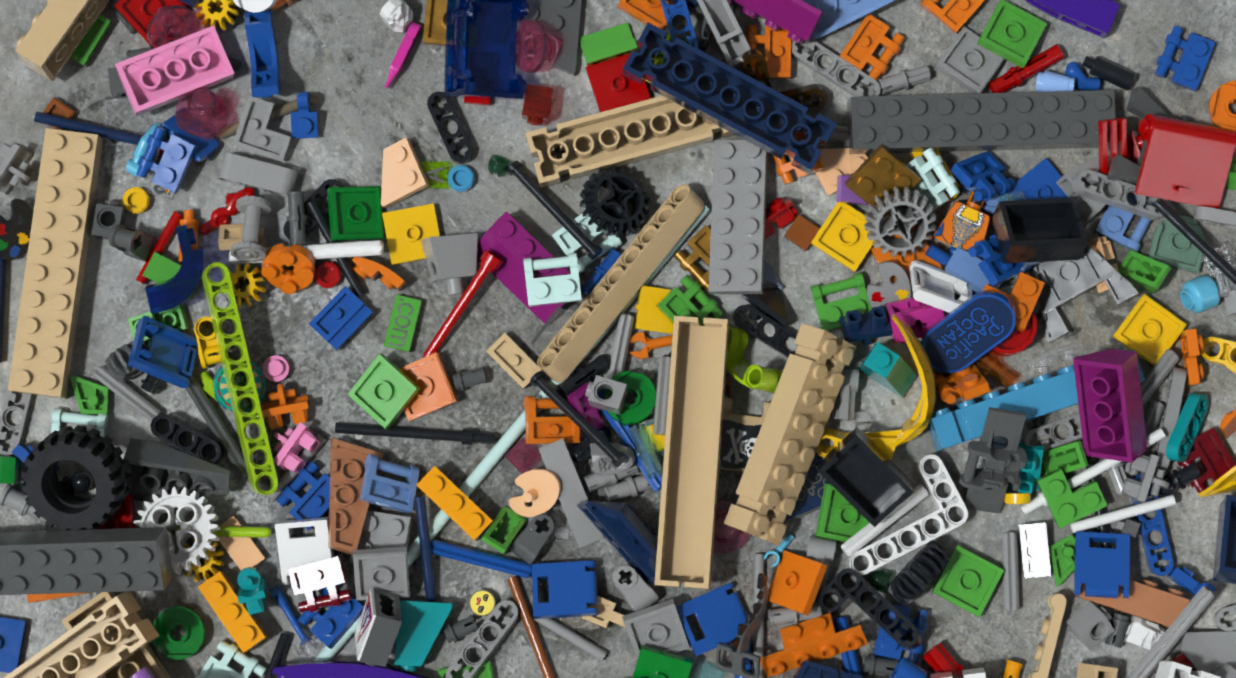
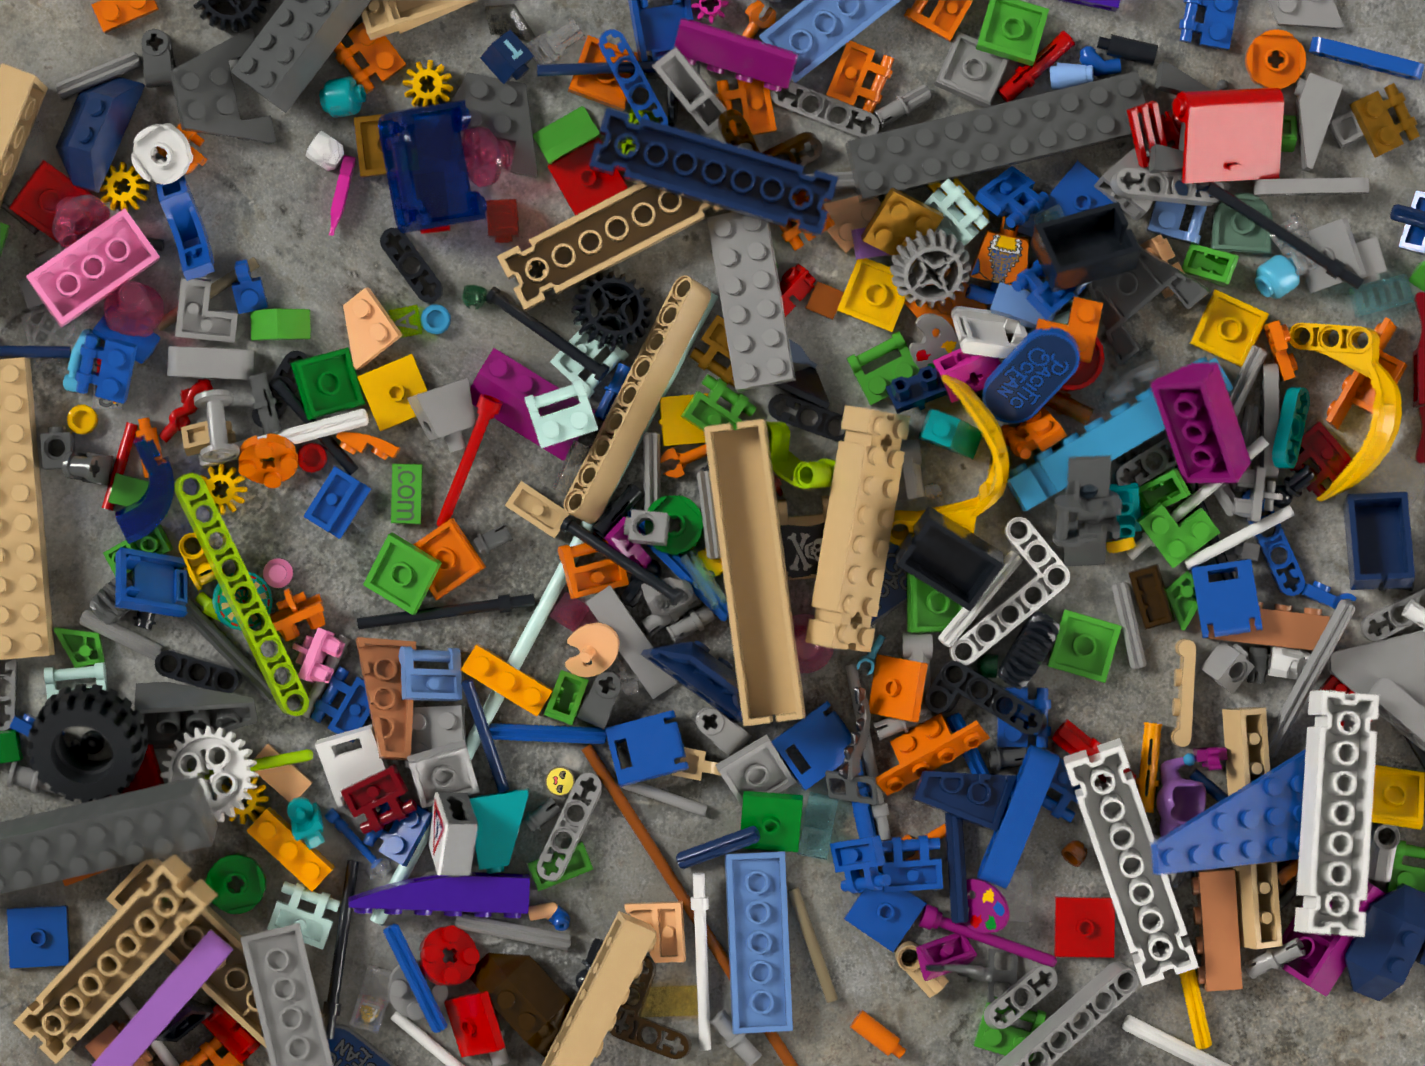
camera: 10 degrees left, 5 degrees up
(325, 154) = (280, 324): none -> bright green slope

